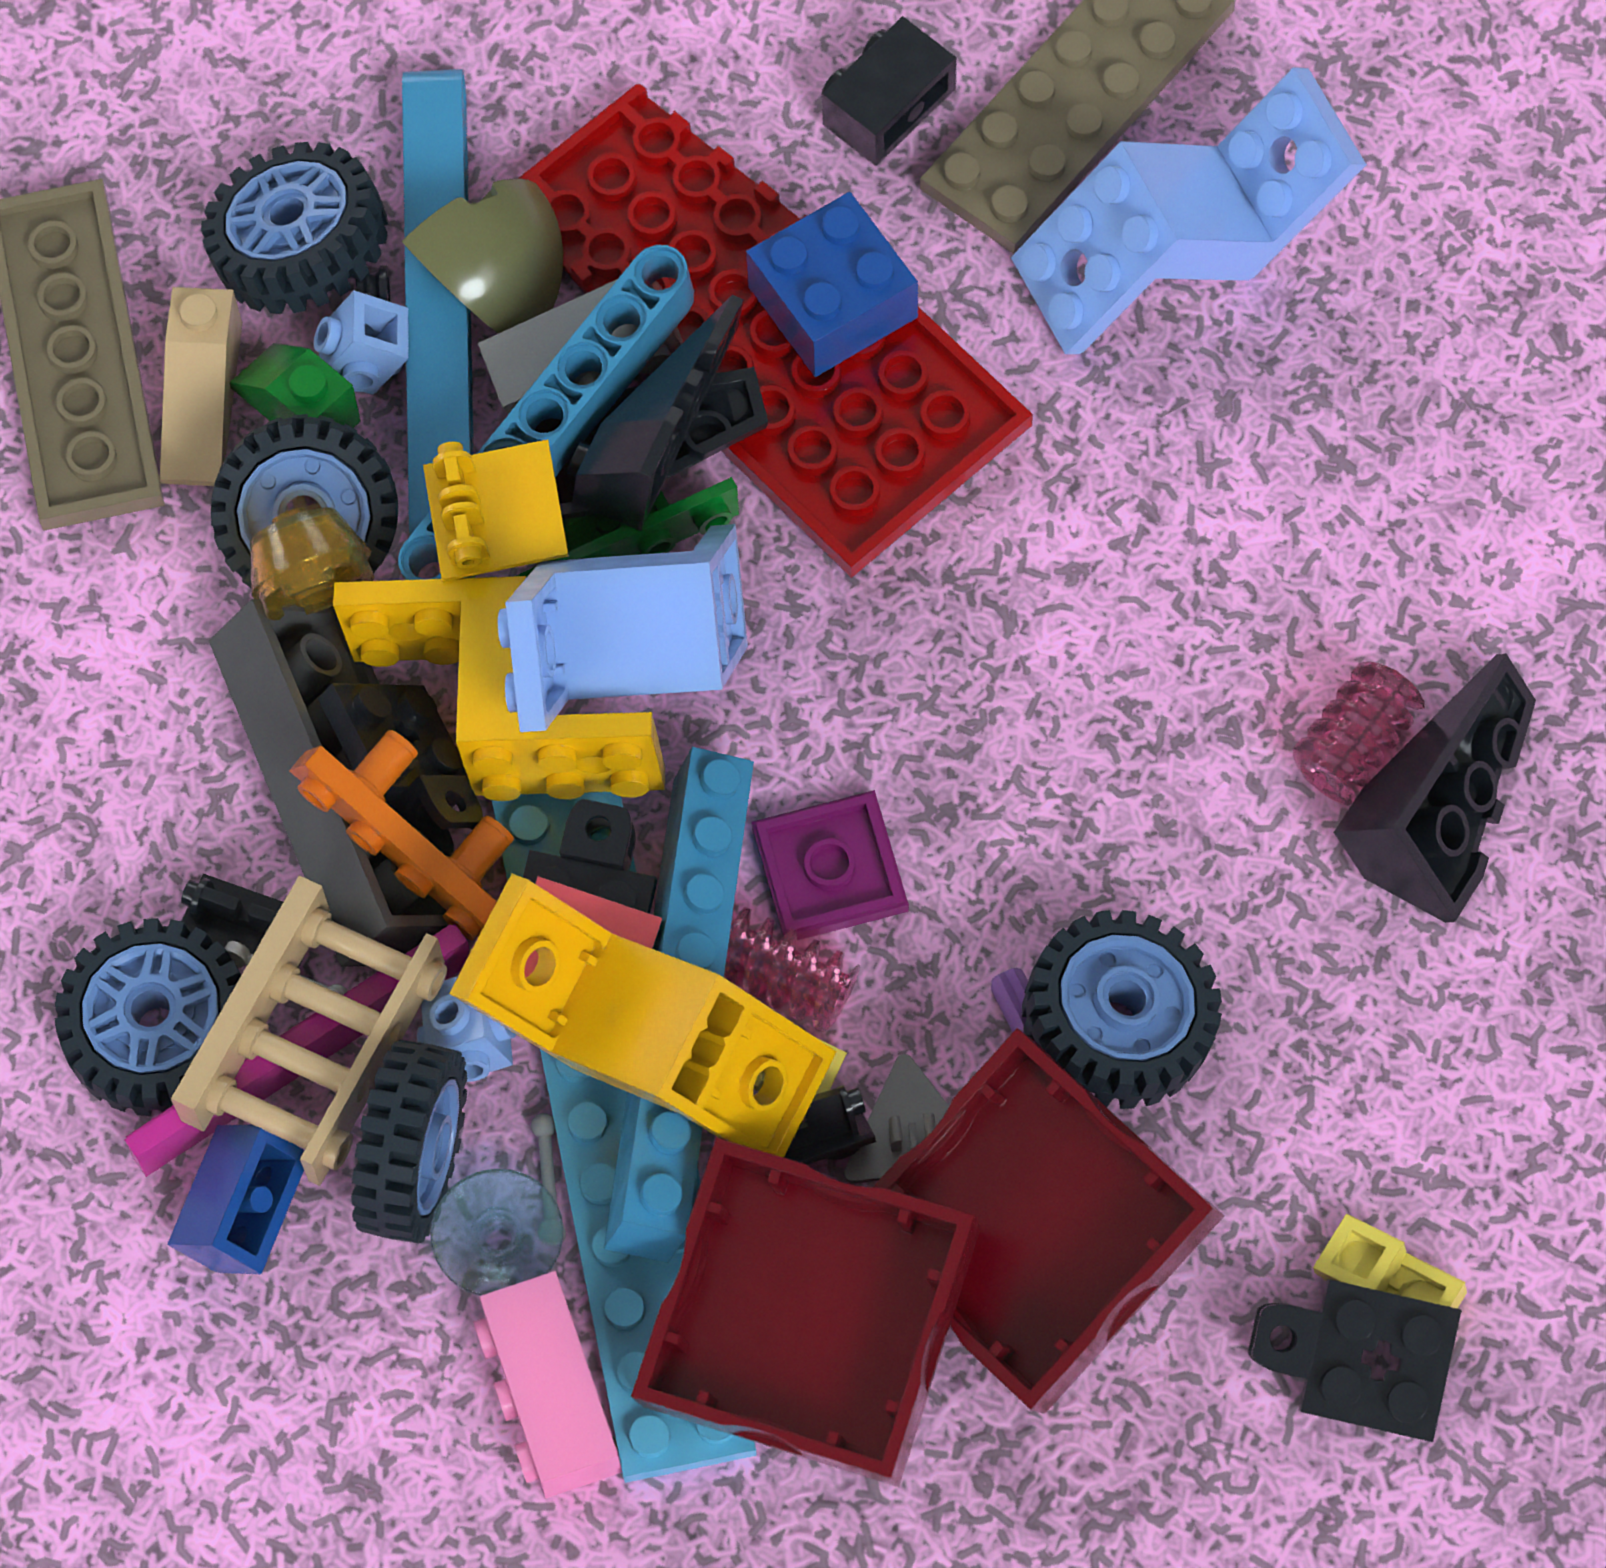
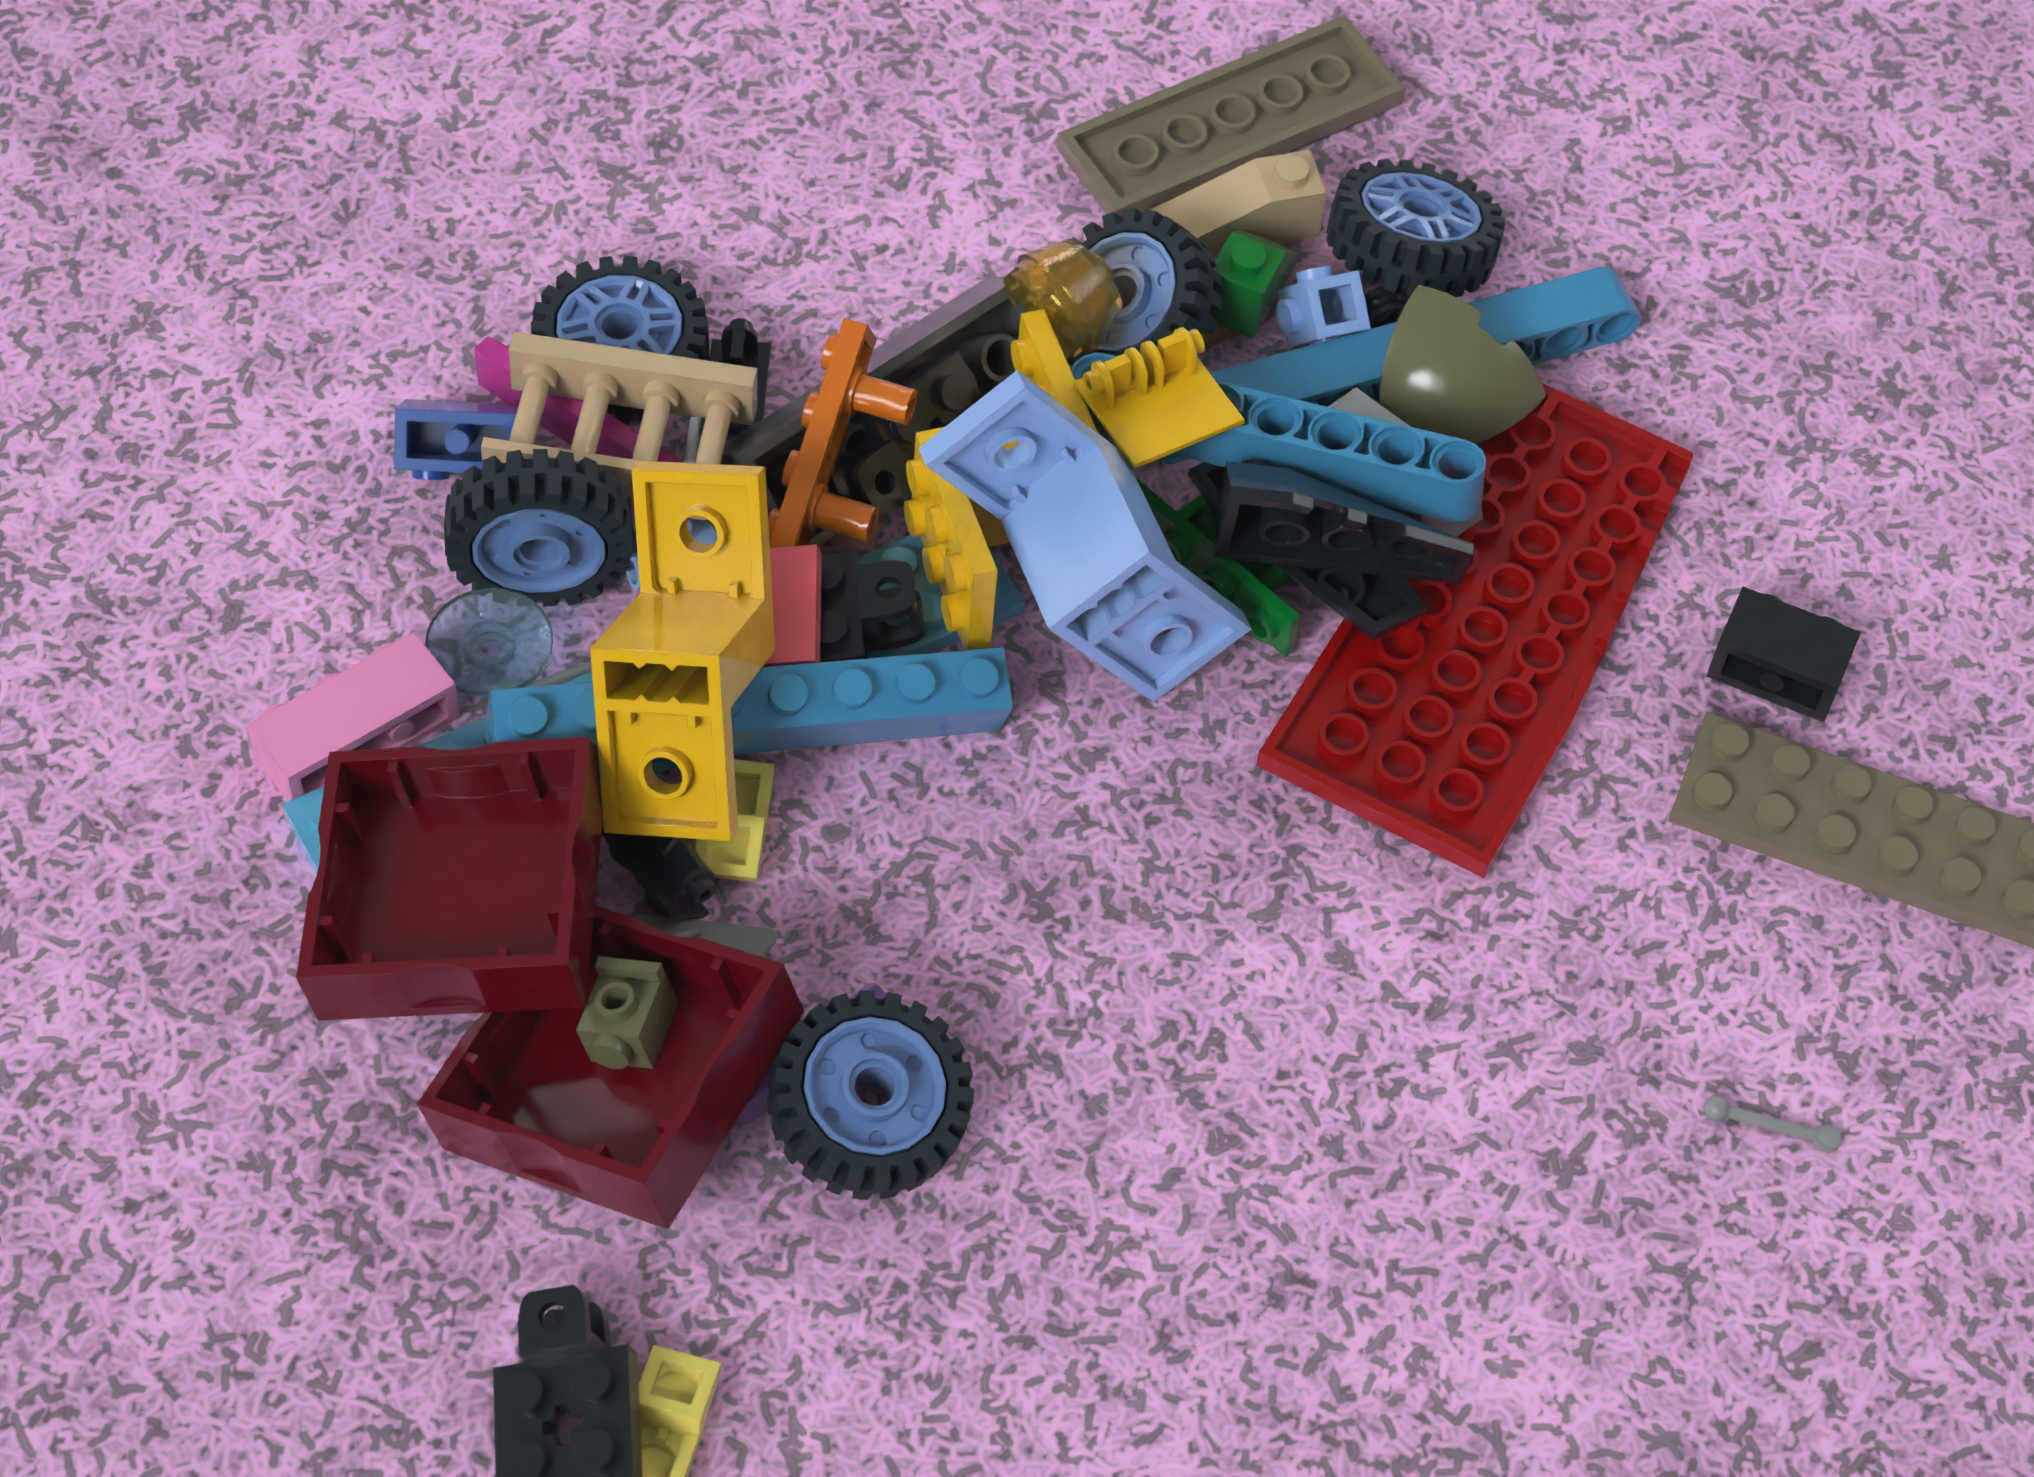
camera: 65 degrees right, 10 degrees down
(787, 972) = (819, 802): clear pink piece -> none
(830, 866) = (948, 822): magenta tile -> none
(832, 284) = (1540, 645): blue brick -> none
(1018, 1207) = (627, 1013): none -> olive brick
(1187, 211) = (1765, 931): light blue bracket -> none
(1352, 728) = (1250, 1242): clear pink piece -> none
(1367, 247) = (1825, 1138): none -> light grey hinge
(1428, 807) = (1202, 1342): black wedge -> none

